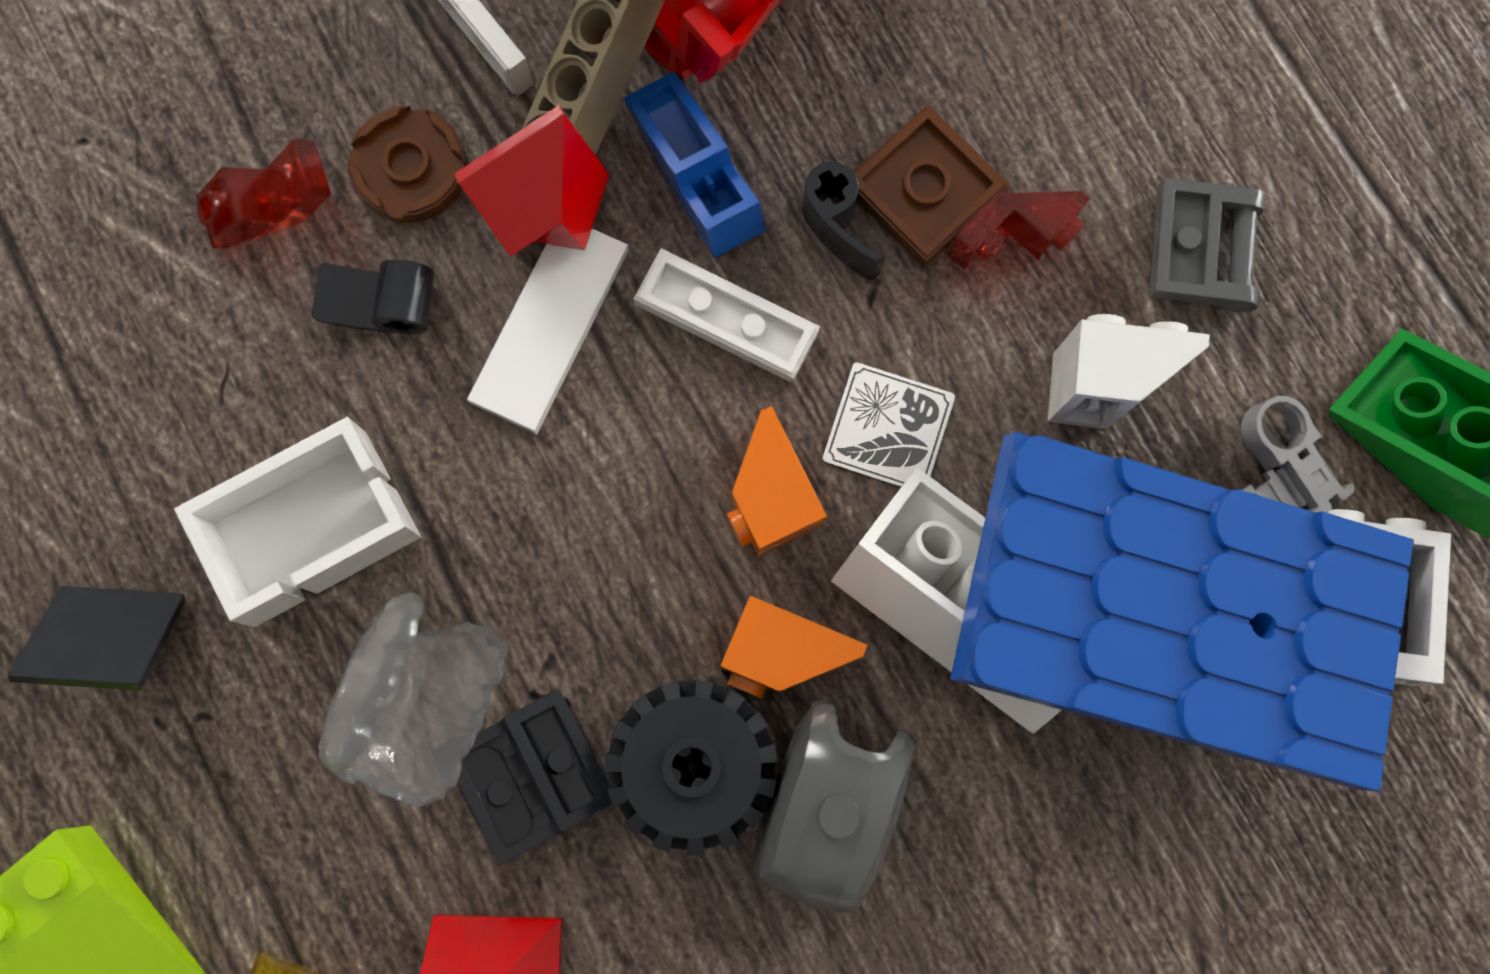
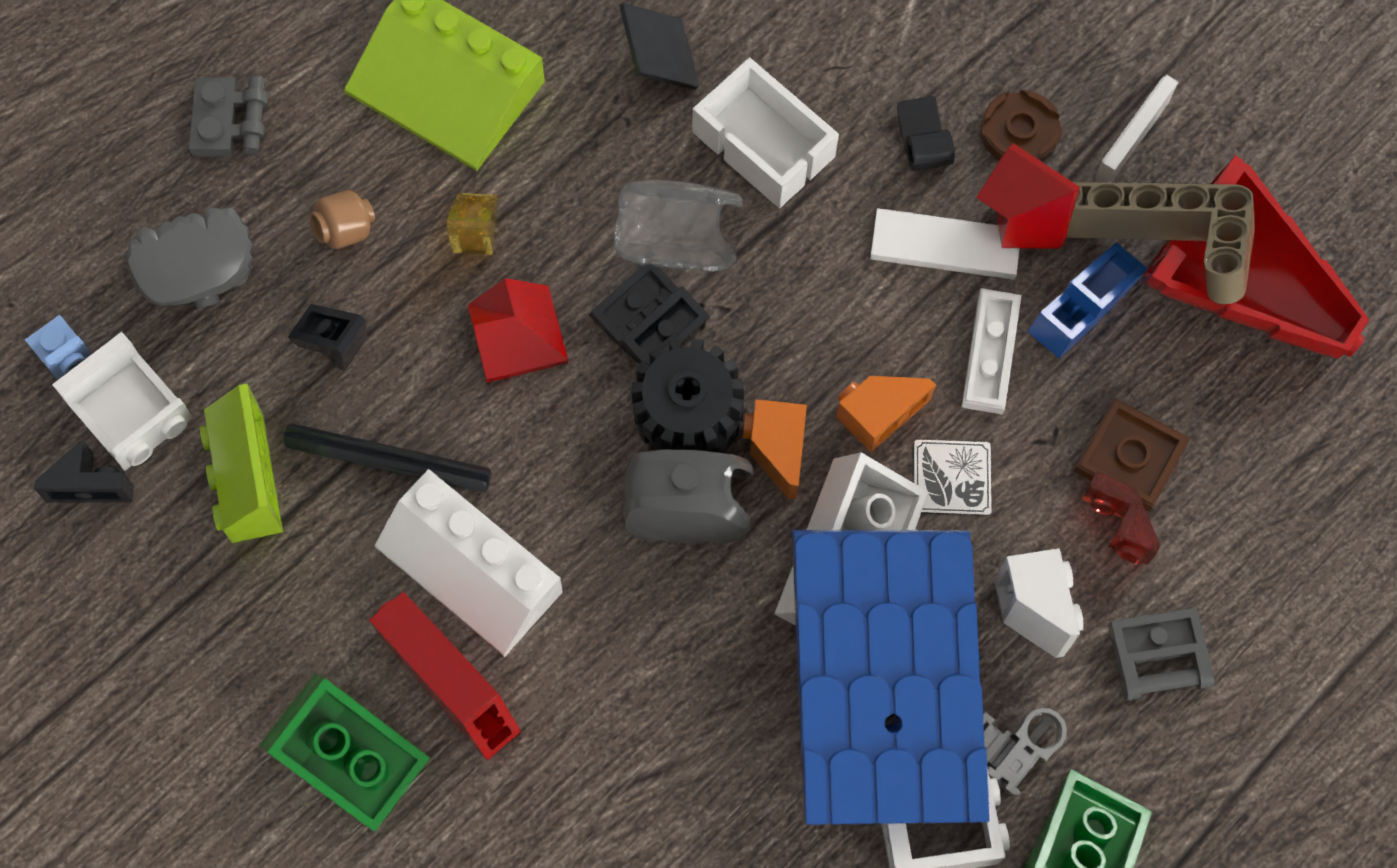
camera: 75 degrees right, 10 degrees down
(257, 202) = (963, 50): clear red slope -> none
(830, 219) = (1087, 400): black panel -> none

